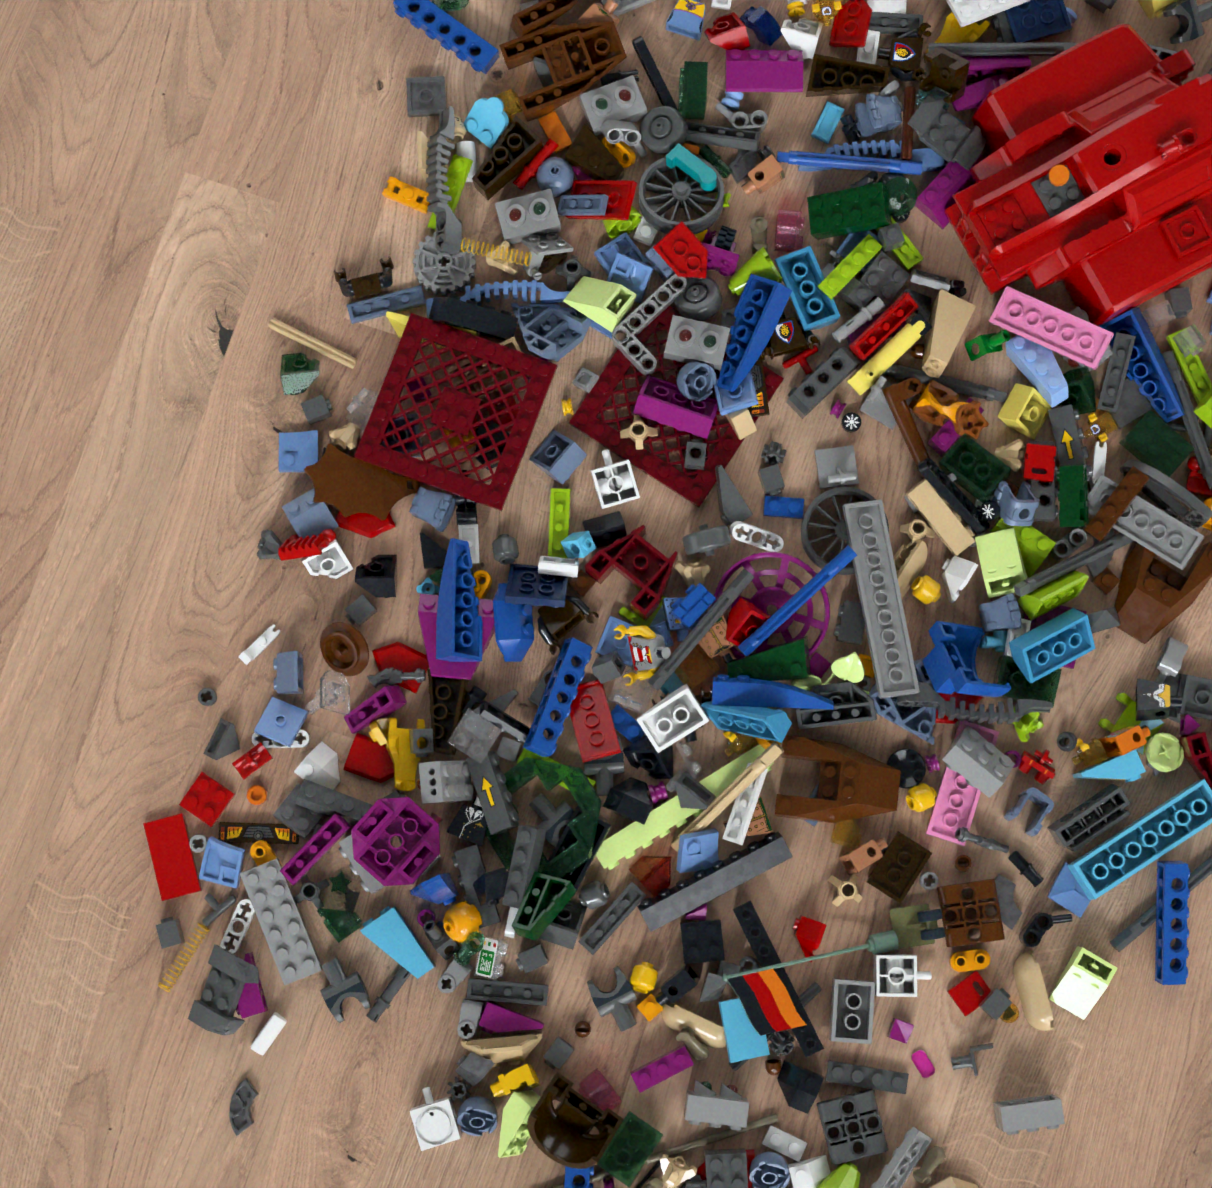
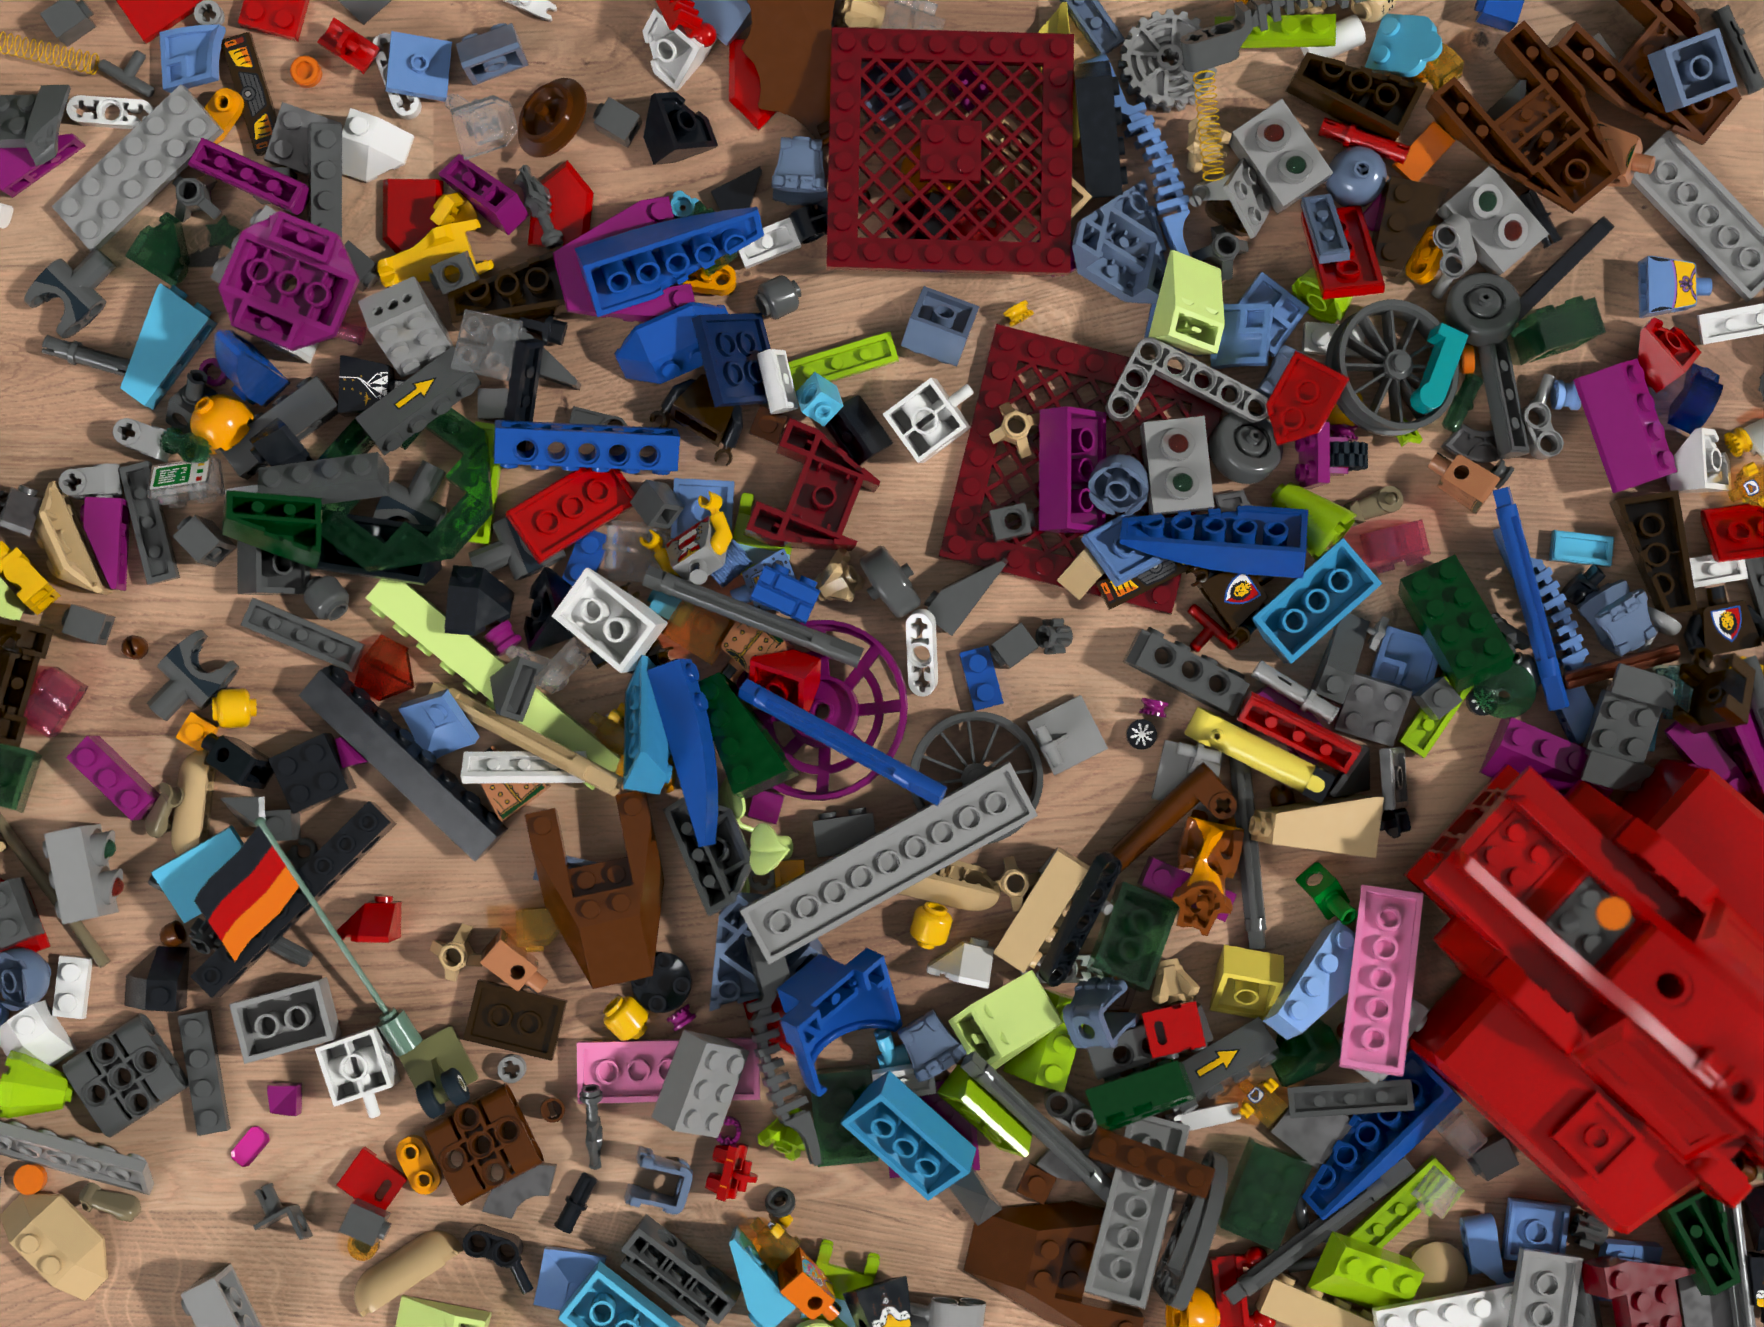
camera: 60 degrees right, 5 degrees up
(585, 380) = (1068, 326): light grey tile -> none
(850, 266) = (1371, 652): lime plate -> none
(990, 510) = (1077, 980): black tile -> none

